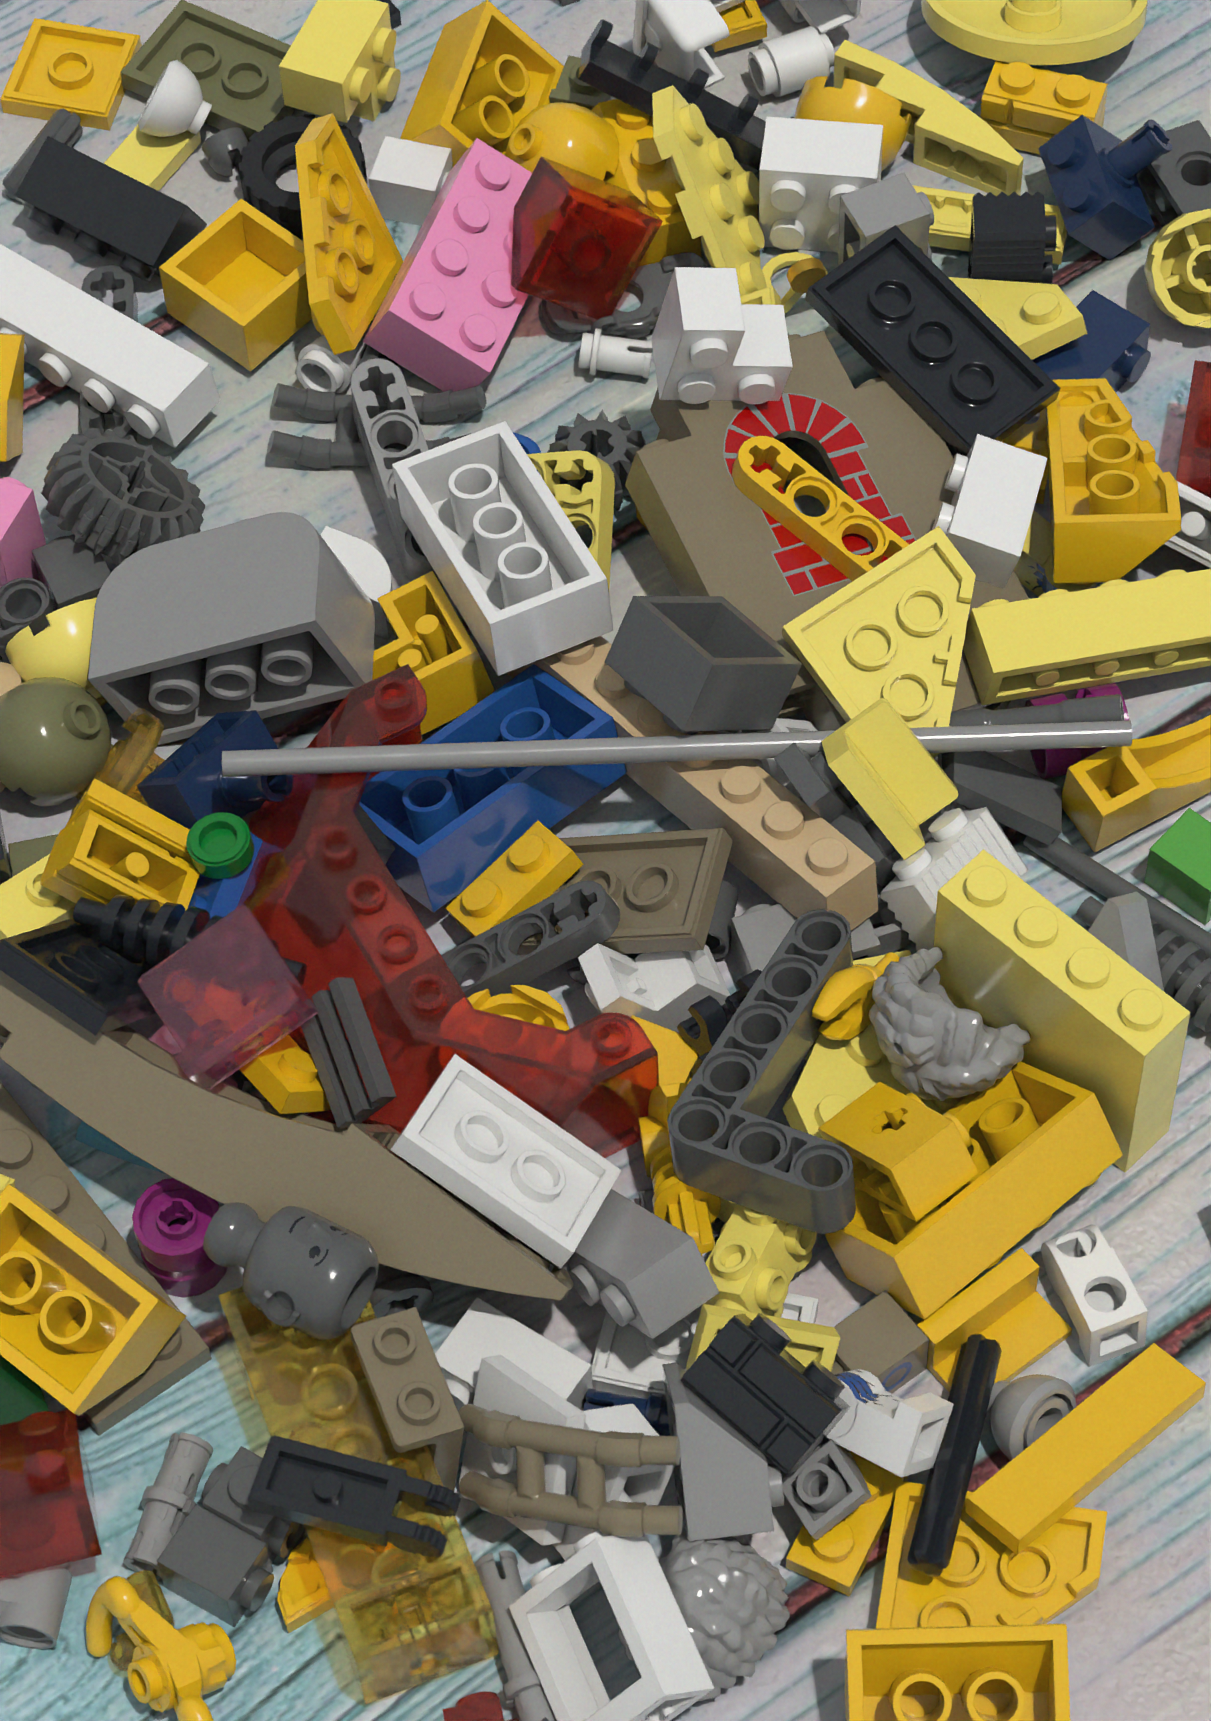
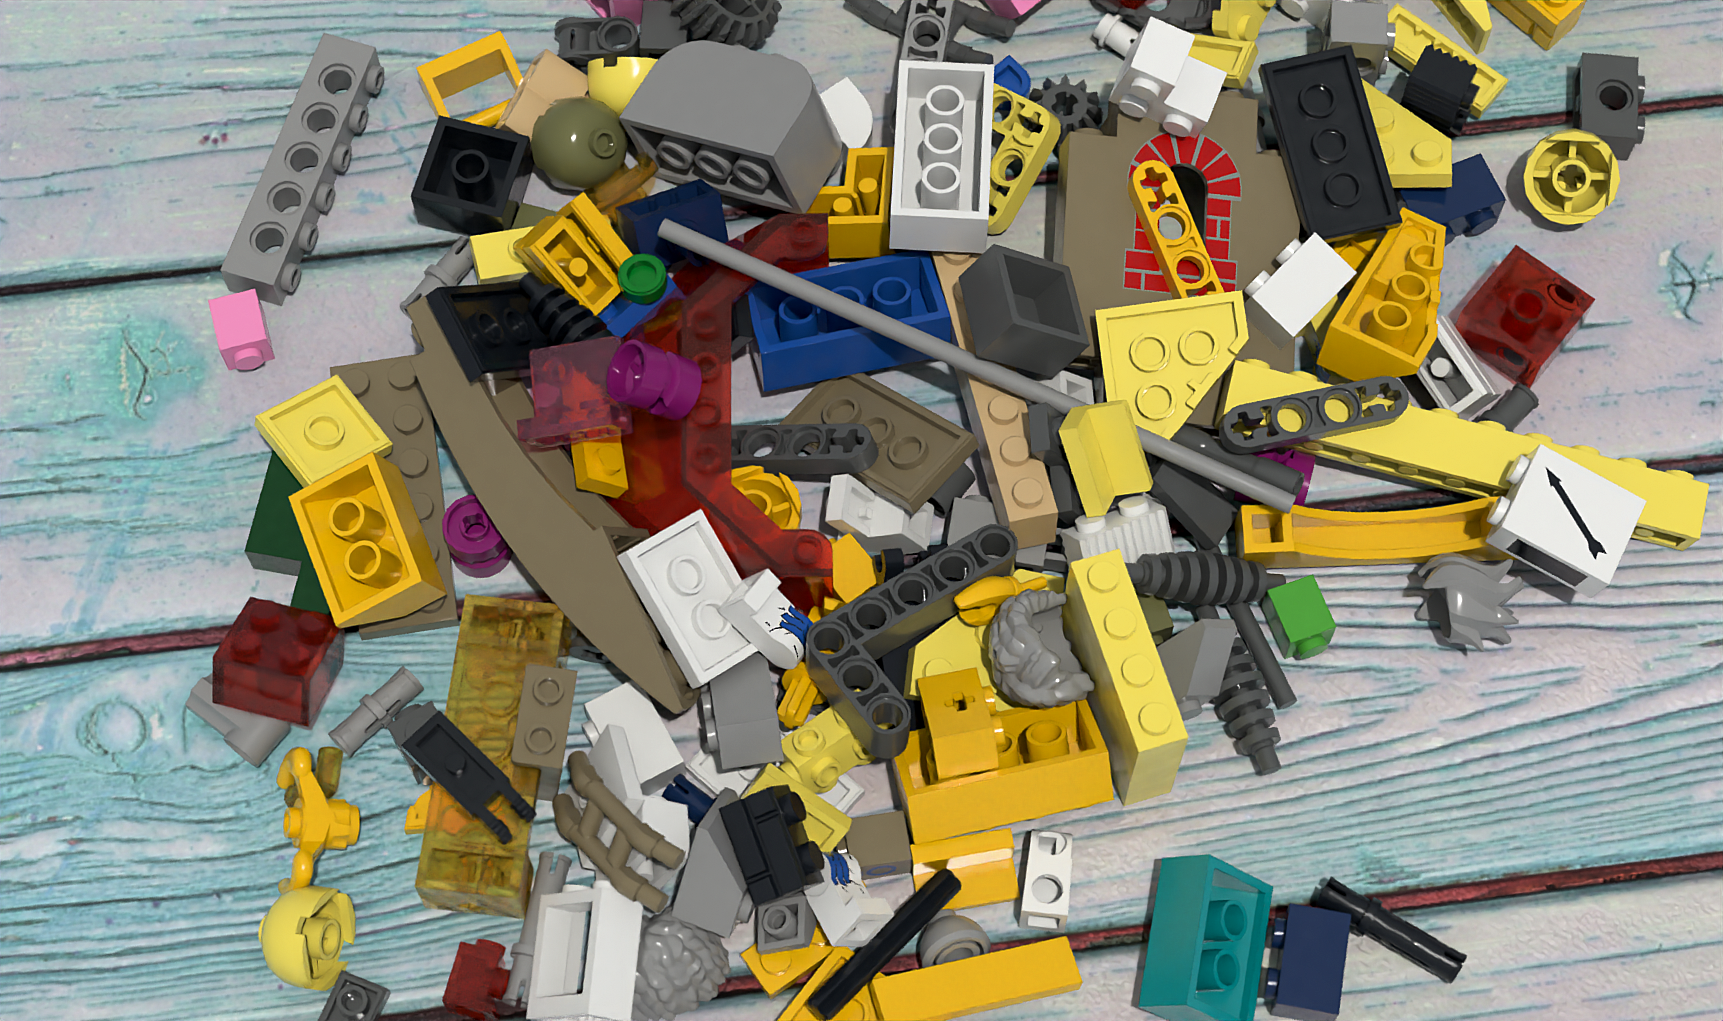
camera: 25 degrees right, 10 degrees up
(216, 1566) = (381, 769): dark grey brick -> none
(296, 1266) = (516, 604): dark grey piece -> none
(316, 932) = (653, 380): none -> magenta wheel
(338, 1057) = (639, 469): dark grey tile -> none
(515, 881) = (828, 398): yellow plate -> none
(606, 1144) = (768, 619): none -> white leg
(802, 274) = (1282, 45): piece -> none
(1083, 863) = (1202, 577): none -> dark grey piece
(1098, 182) = (1536, 73): dark blue brick -> none
(1099, 629) = (1312, 410): none -> dark grey beam

